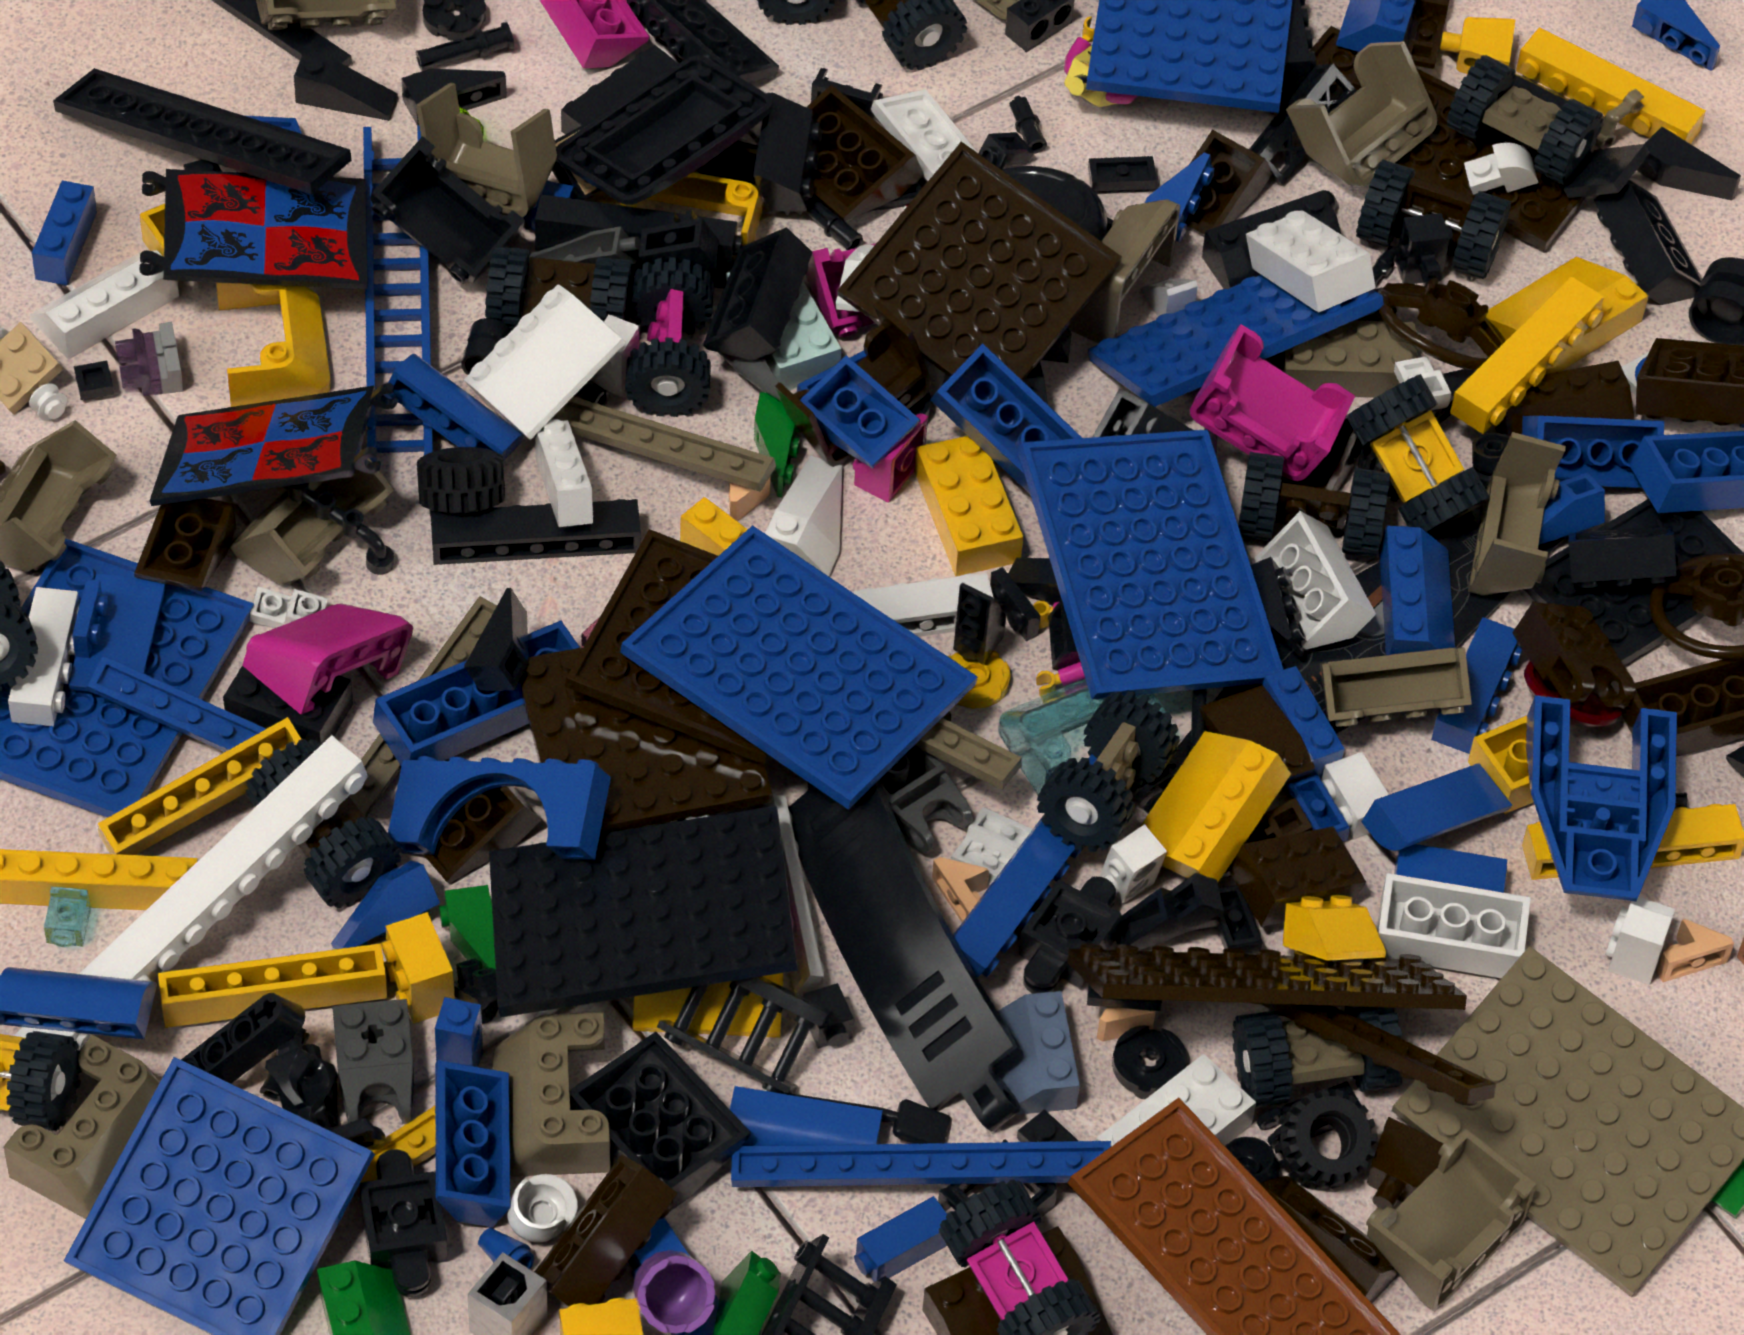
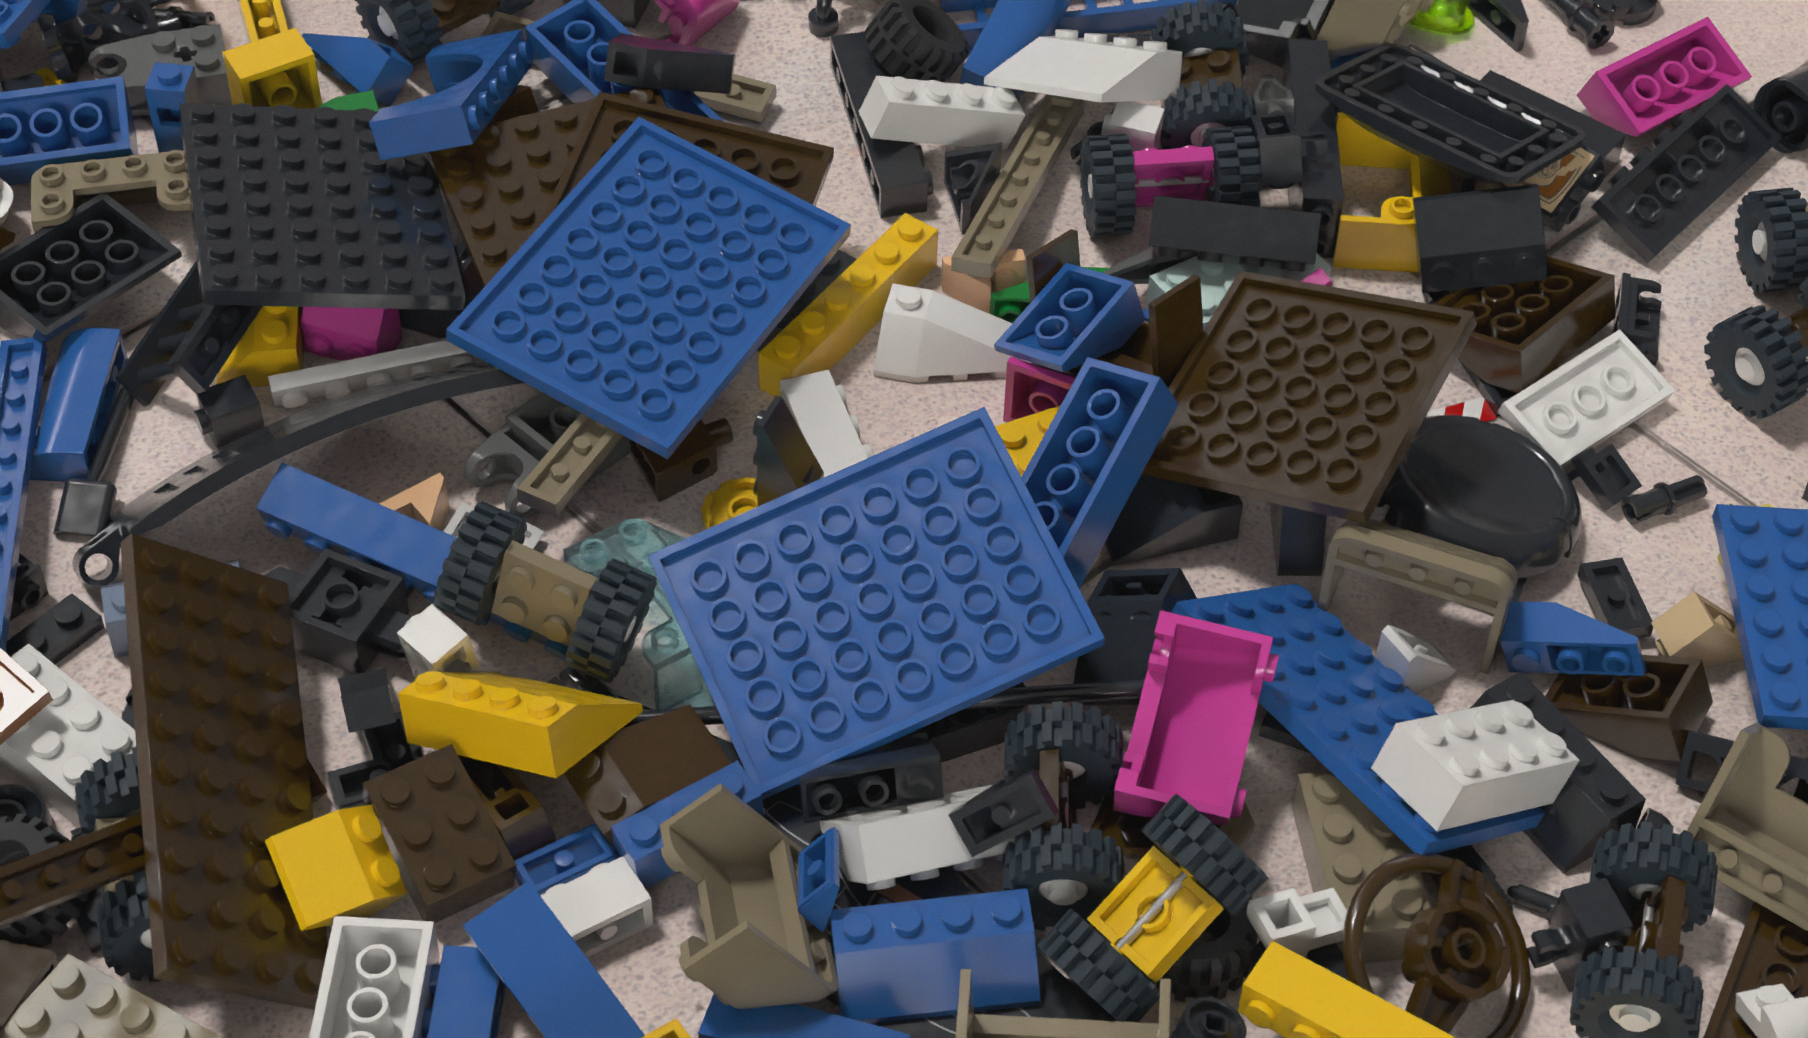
camera: 85 degrees right, 5 degrees down
(635, 474) = (969, 178): none -> black slope
(1163, 135) = (1698, 631): none -> tan slope
(1336, 528) = (1003, 812): none -> black slope
(1365, 640) = (819, 878): none -> blue slope

